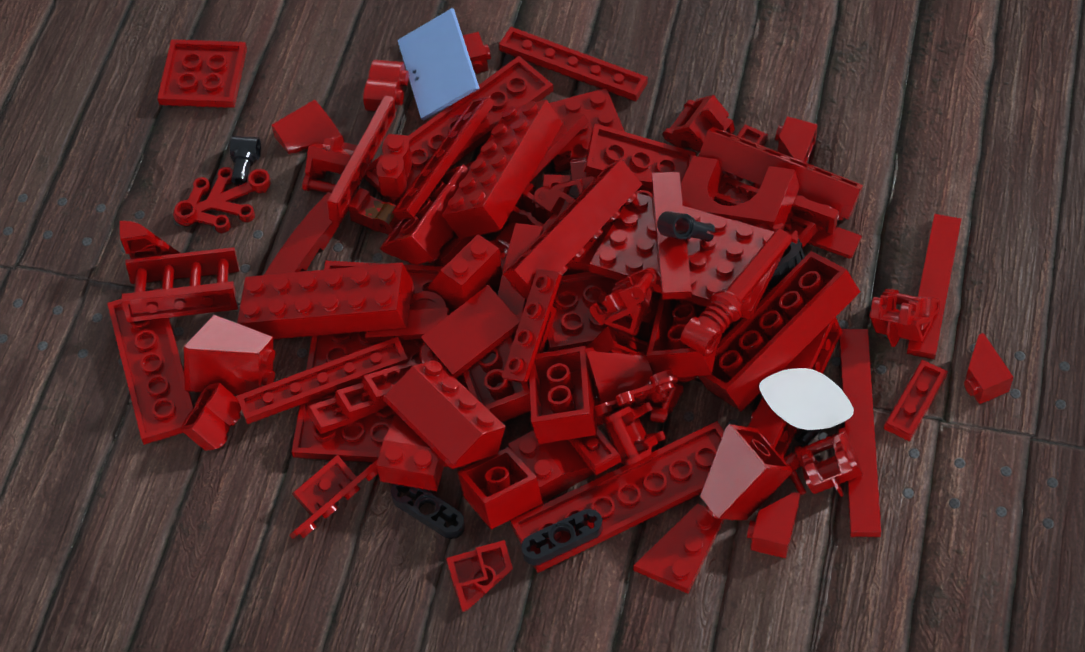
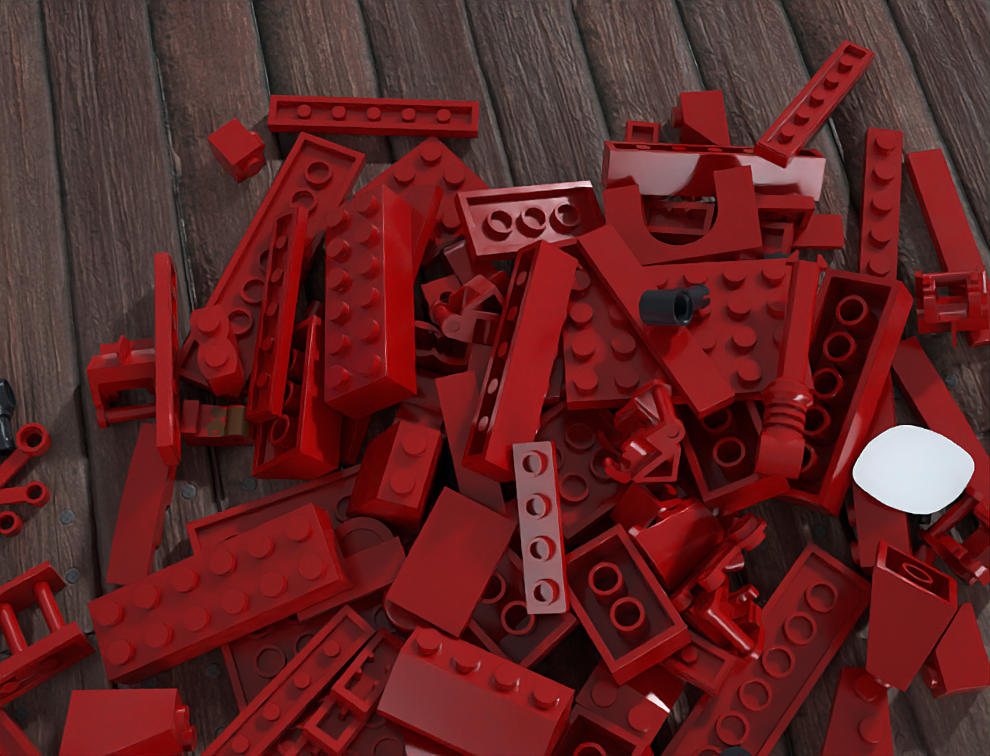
camera: 30 degrees left, 10 degrees up
(304, 128) = (63, 338): red slope -> none
(385, 79) = (141, 234): red brick -> none
(438, 64) = (212, 183): light blue container -> none
(695, 121) = (585, 145): red piece -> none
(879, 154) = (813, 104): none -> red tile
(891, 248) = (880, 203): none -> red plate

